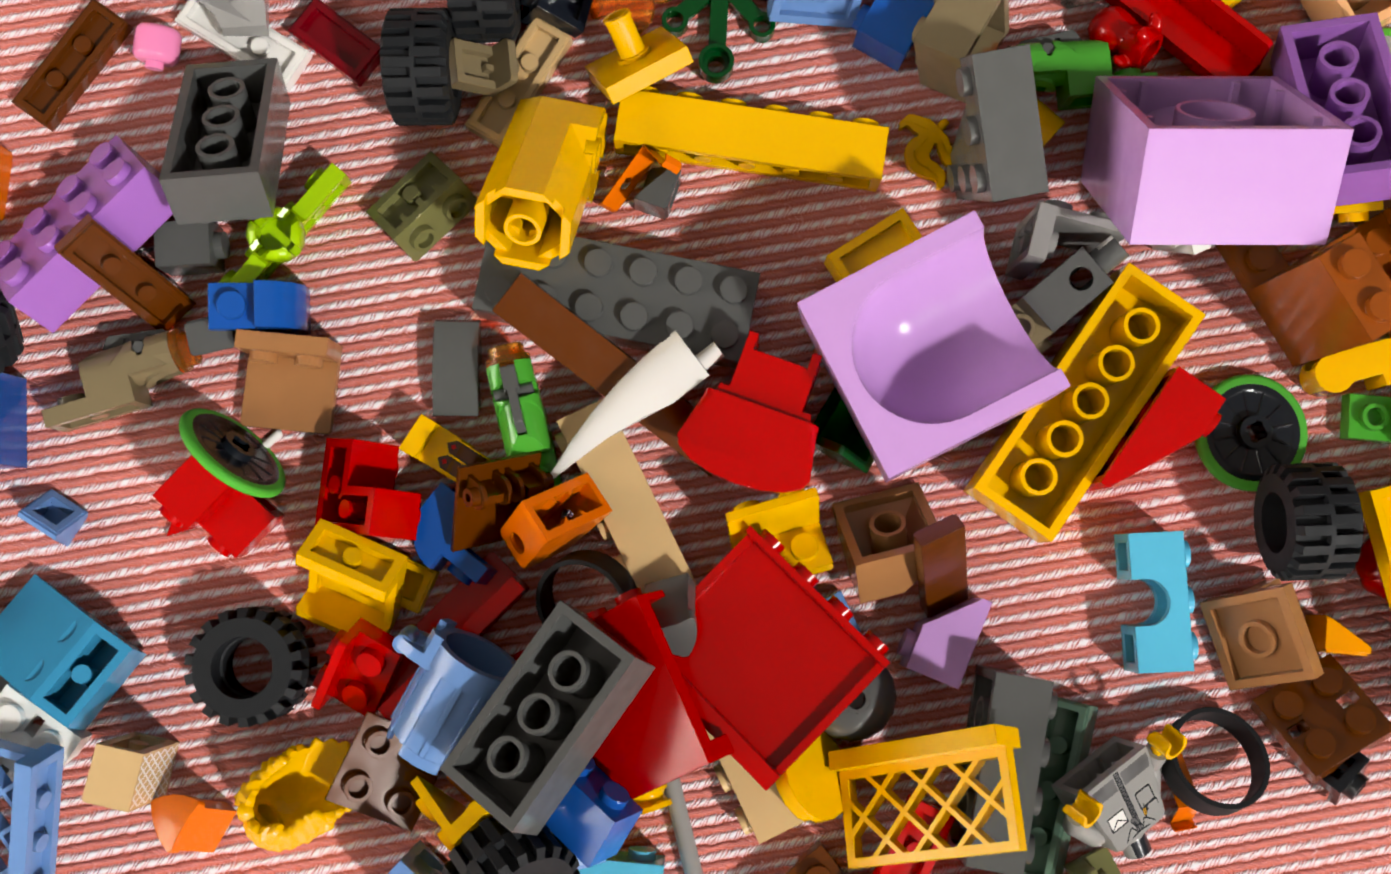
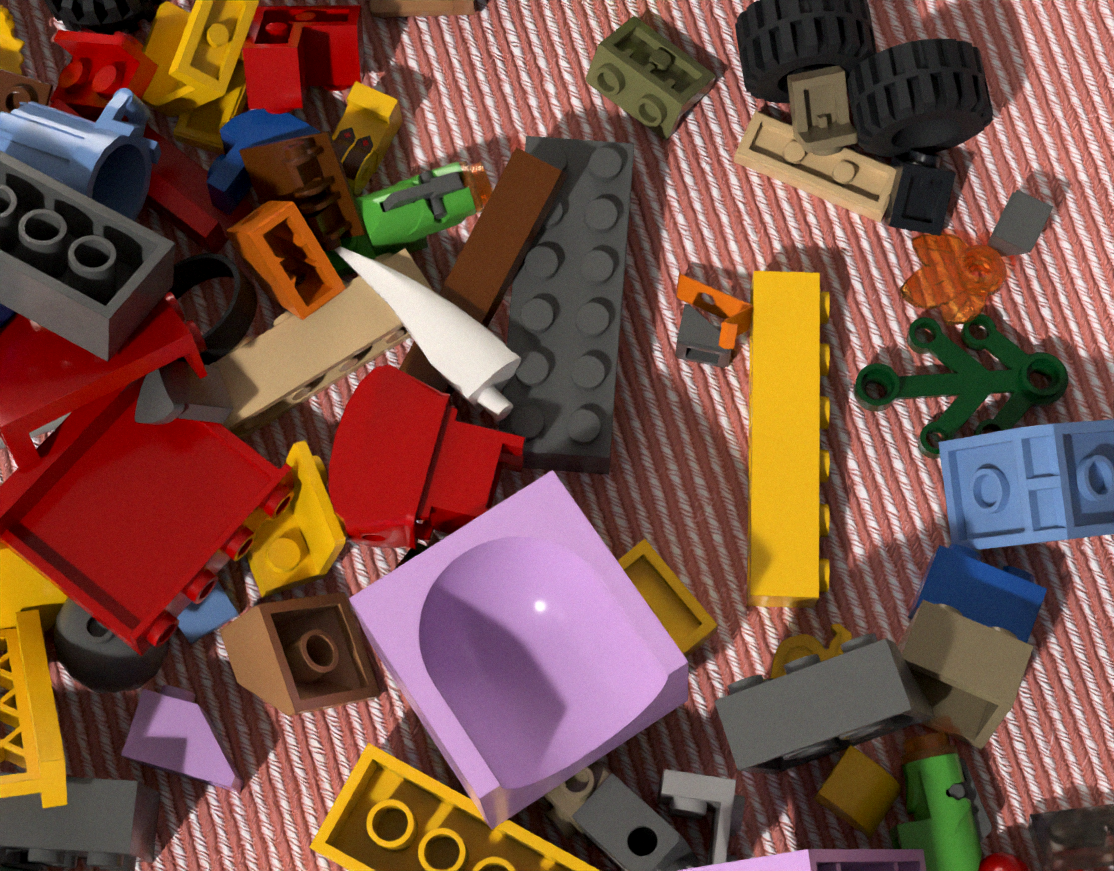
camera: 90 degrees right, 10 degrees down
(456, 367) = (460, 135): dark grey slope -> none
(541, 181) = (684, 188): yellow brick -> none
(637, 59) = (857, 285): yellow tile -> none
(941, 565) = (267, 710): reddish brown tile -> none

